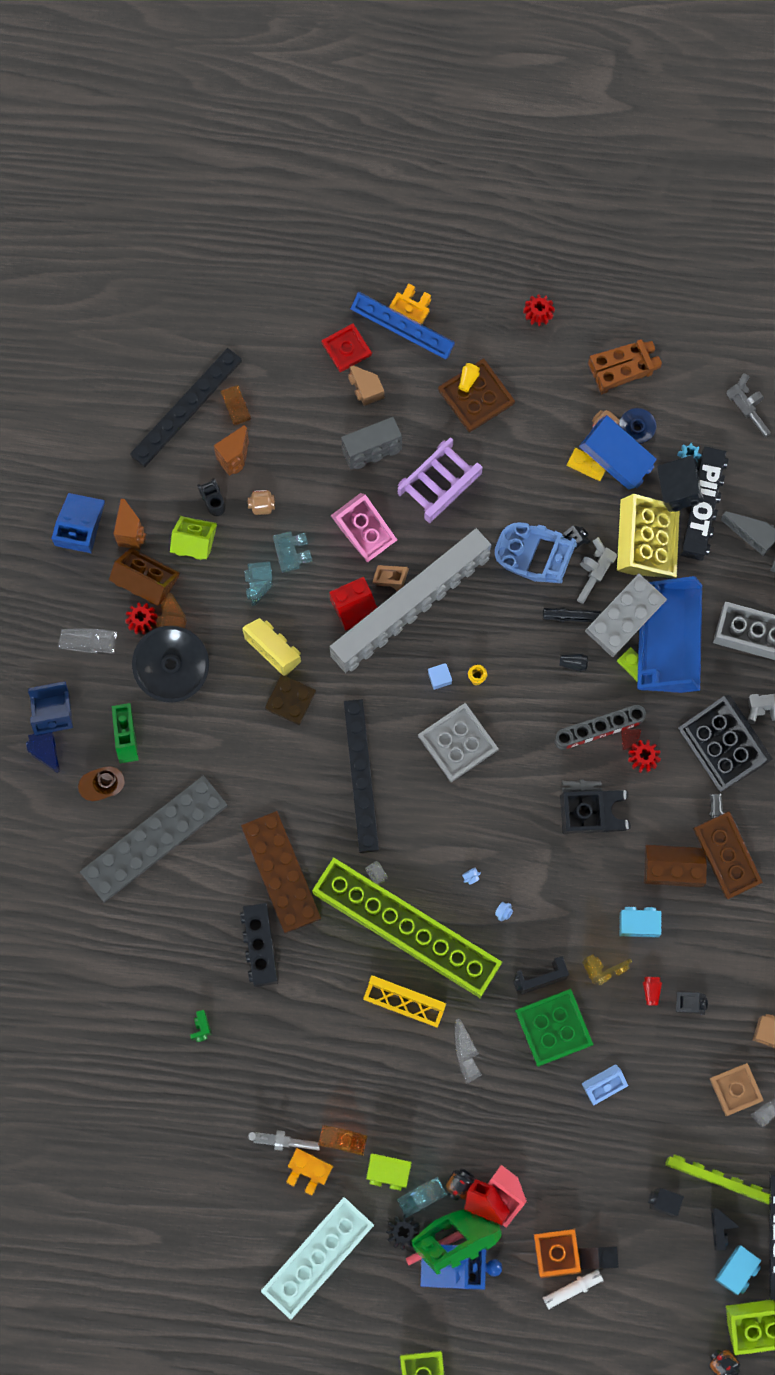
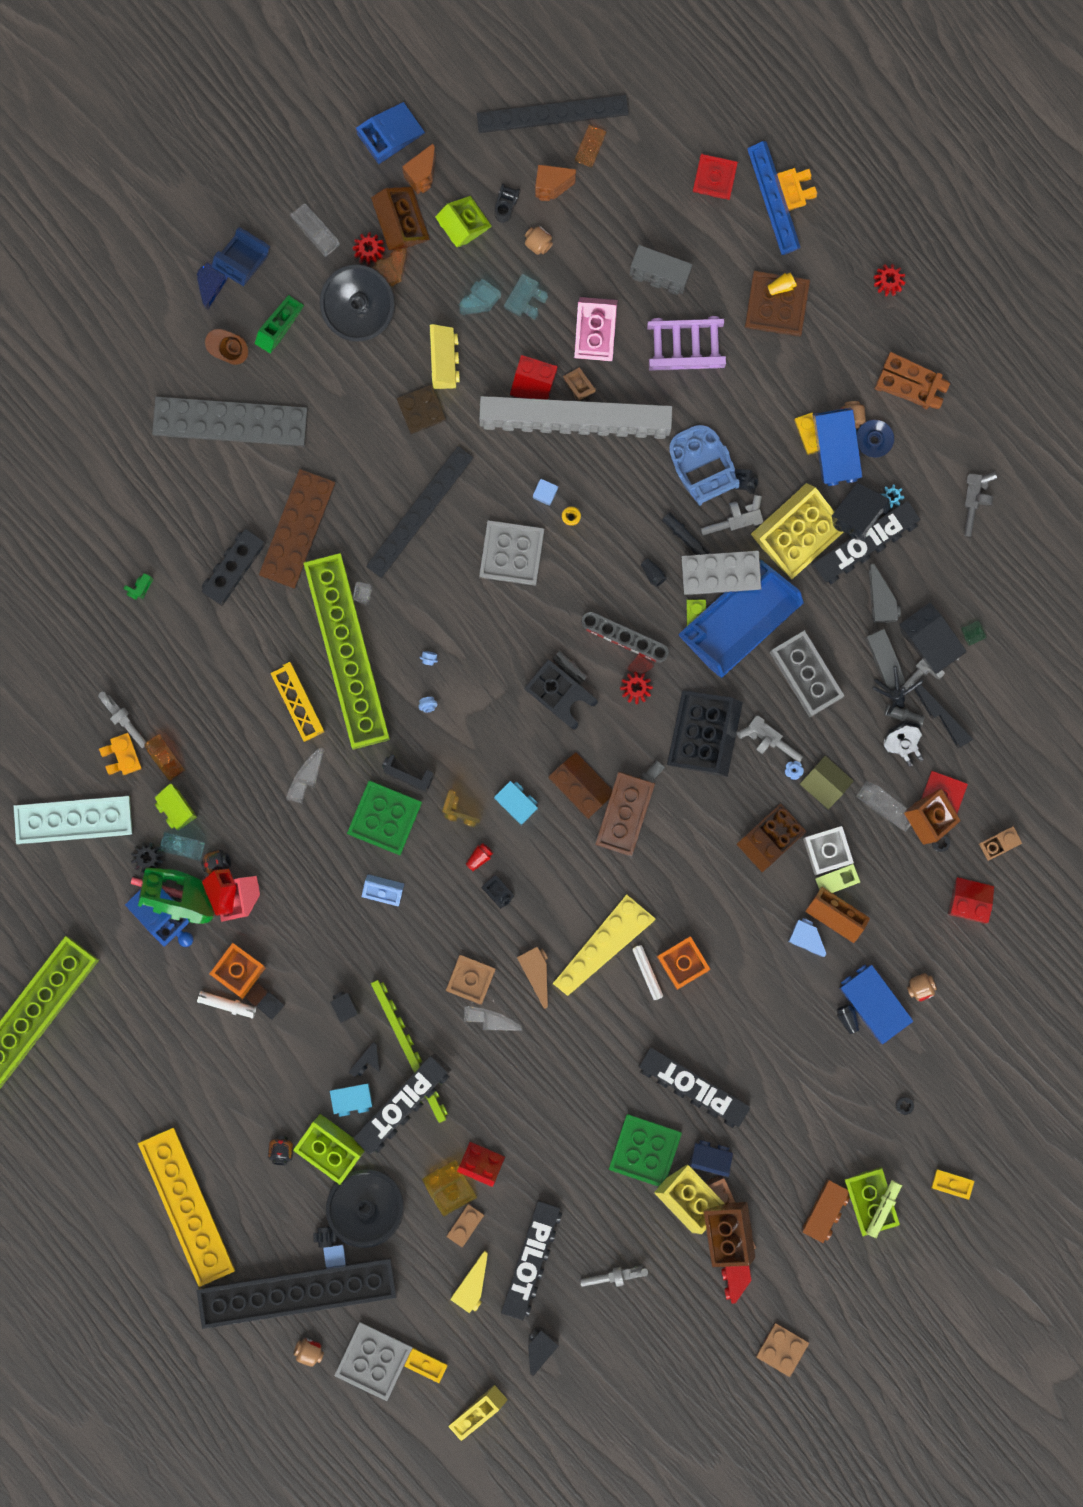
camera: 40 degrees right, 10 degrees up
(367, 385) = (703, 220): medium nougat slope -> none

